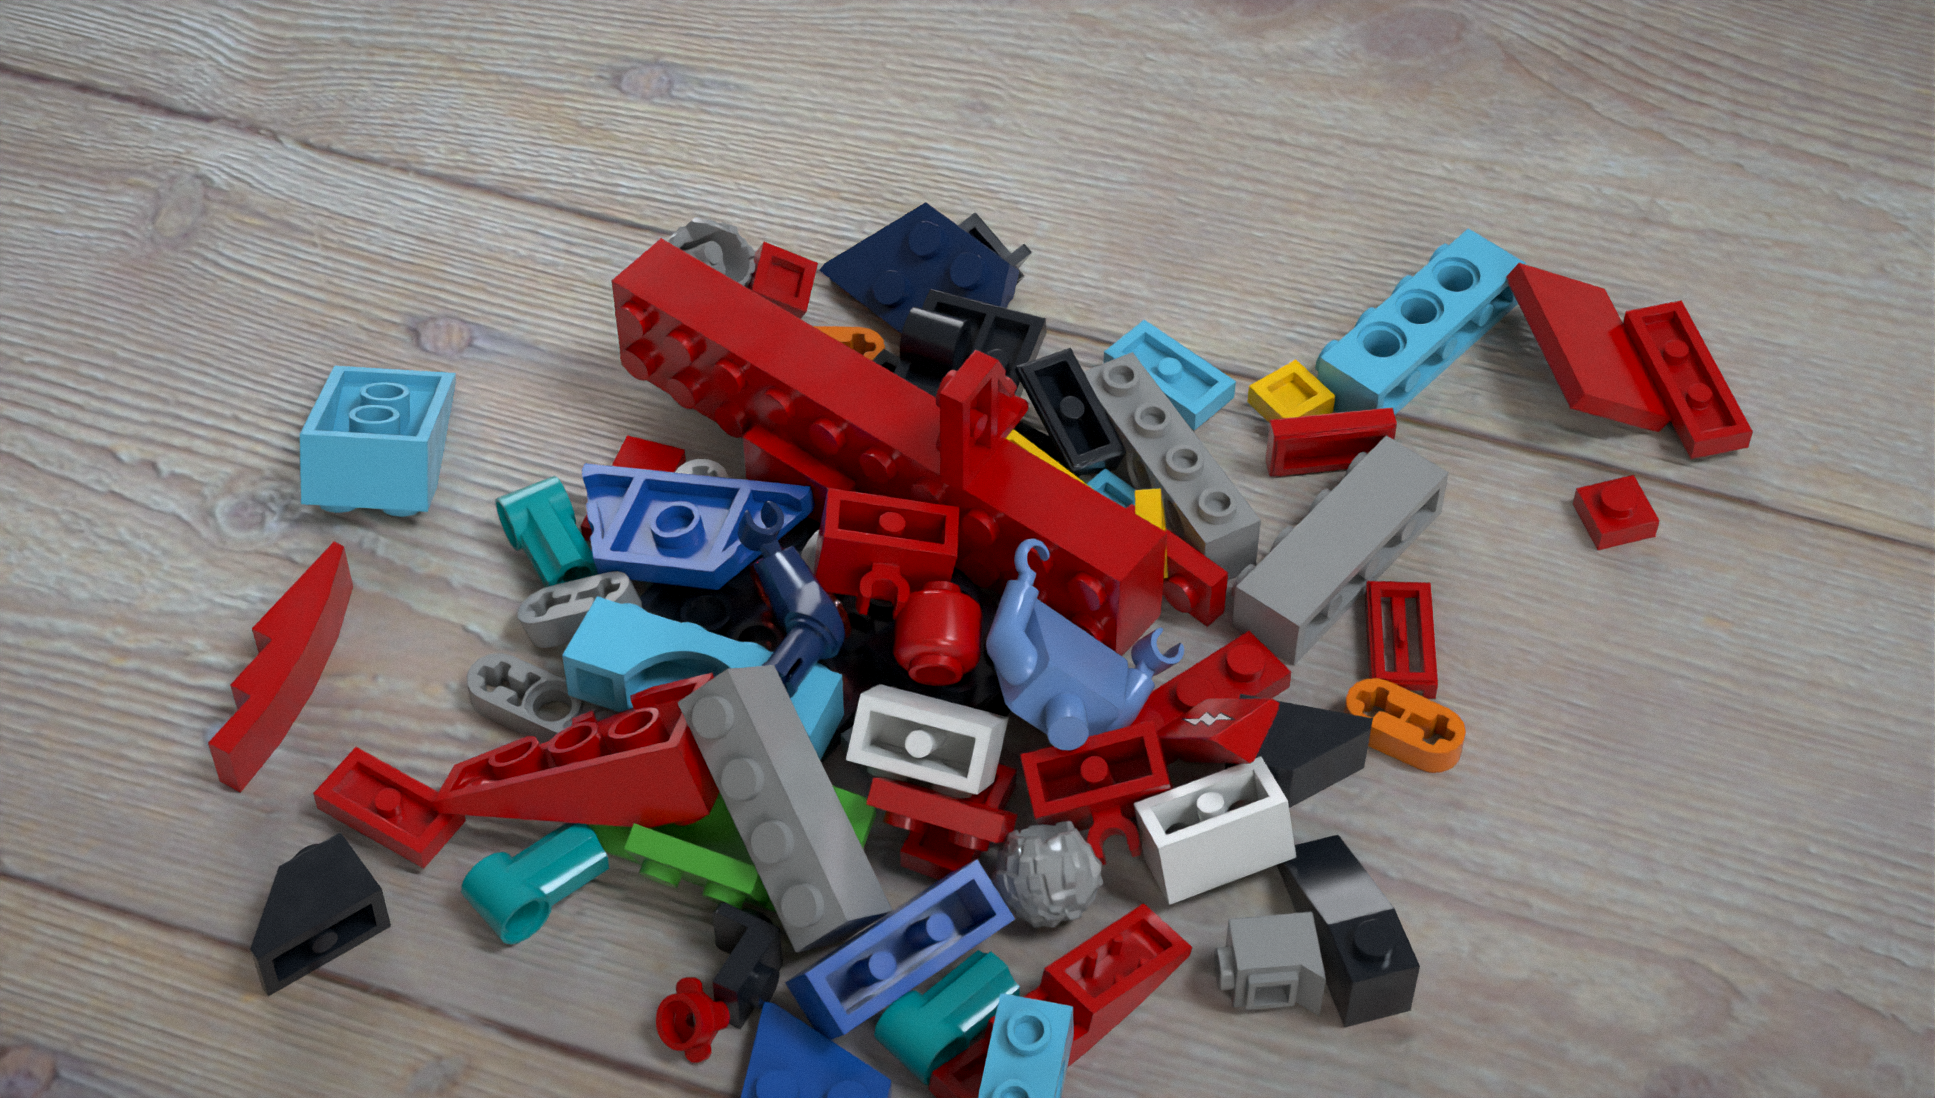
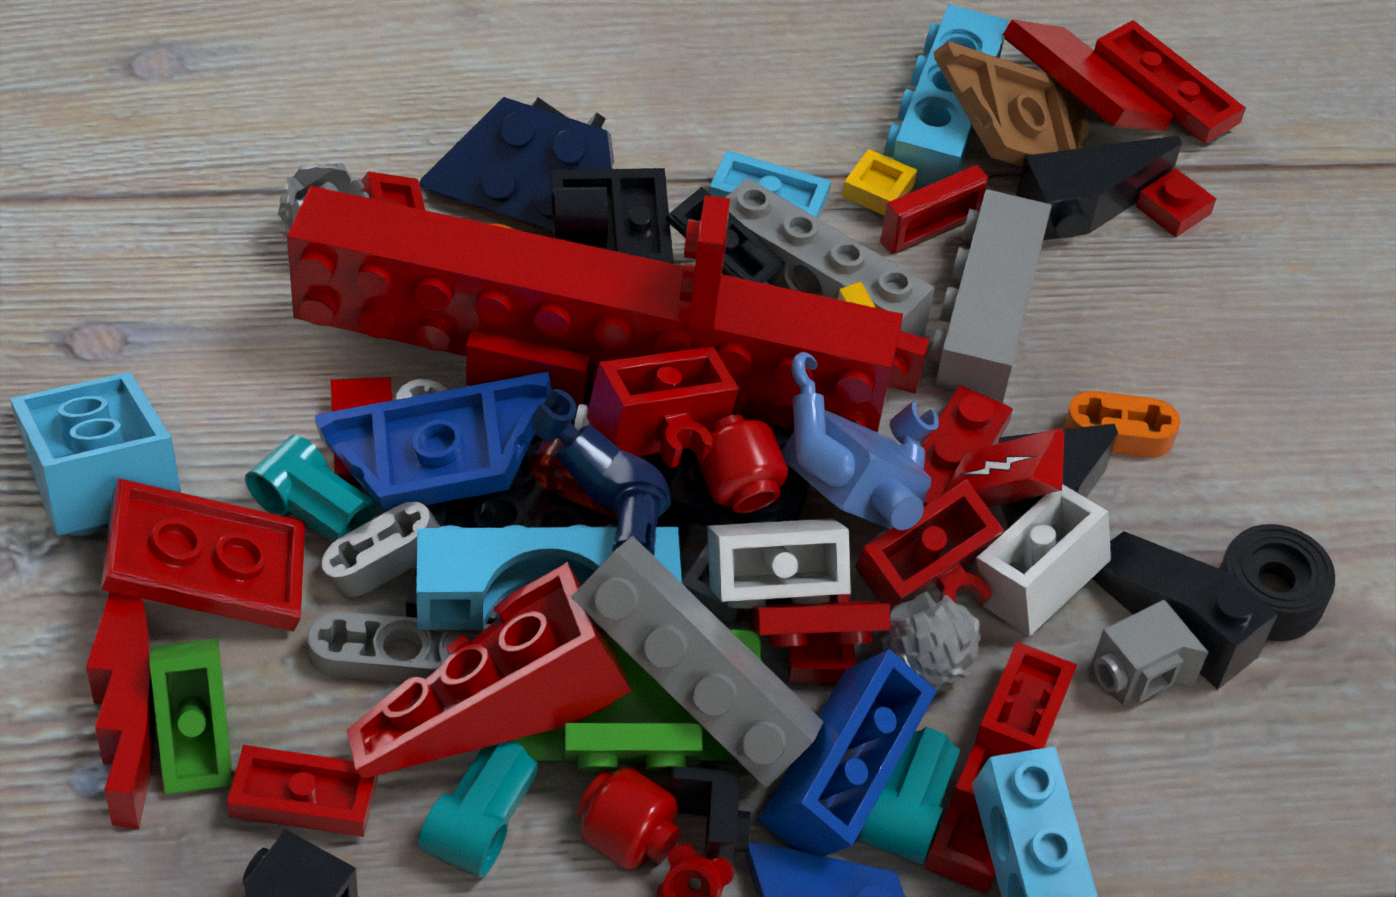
camera: 30 degrees left, 0 degrees up
(328, 701) = (191, 715): none -> bright green slope
(414, 563) = (204, 555): none -> red tile
(664, 936) = (628, 818): none -> red head
(1397, 591) = (1066, 356): red tile -> none
(1471, 363) = (1012, 105): none -> medium nougat wing
(1472, 903) = (1297, 560): none -> black tyre
(1525, 467) = (1094, 182): none -> black slope

